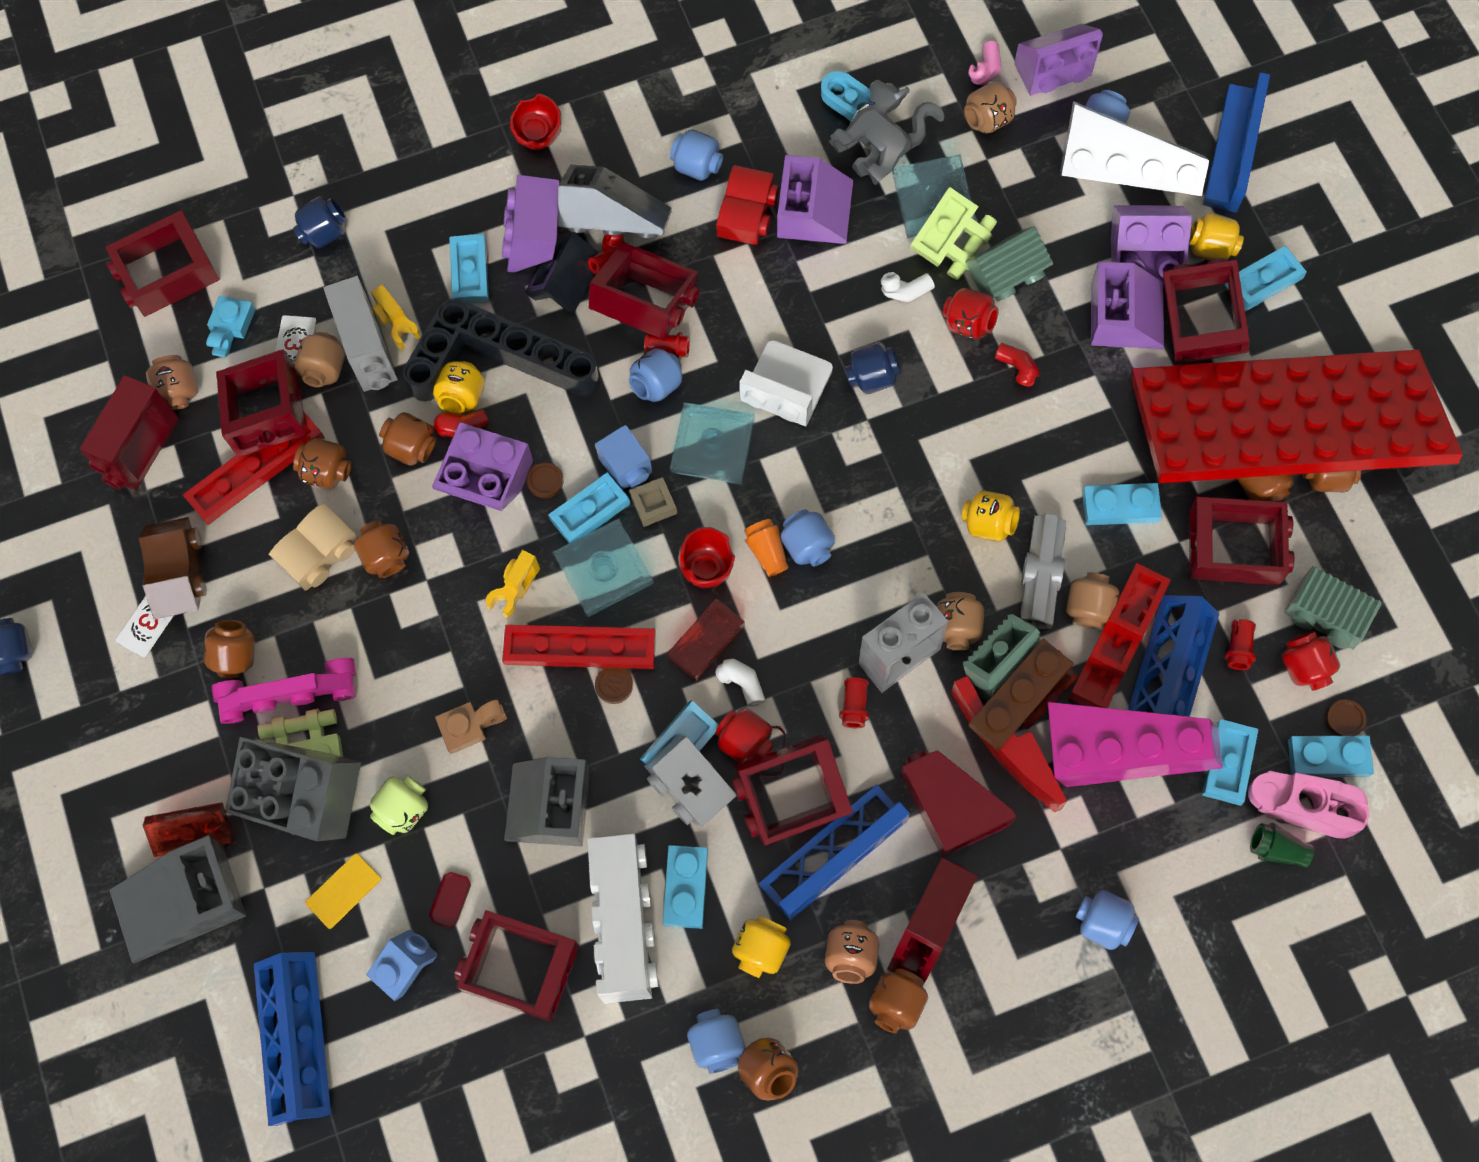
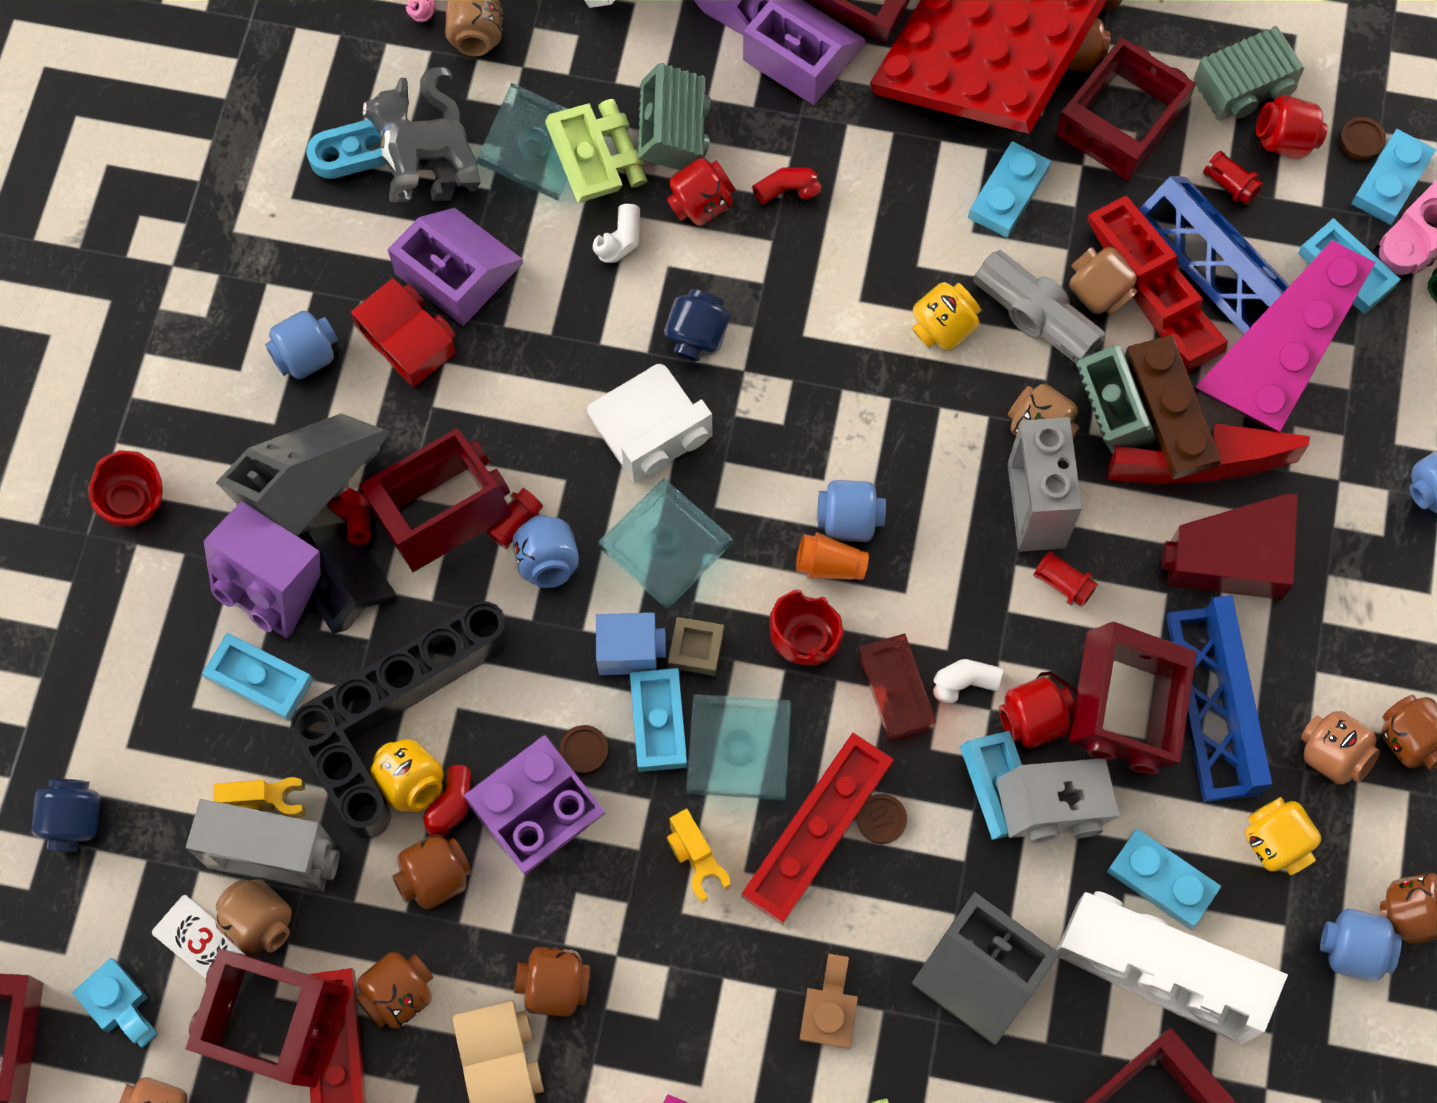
camera: 60 degrees left, 0 degrees up
(933, 919) = (1356, 645): dark red slope -> none

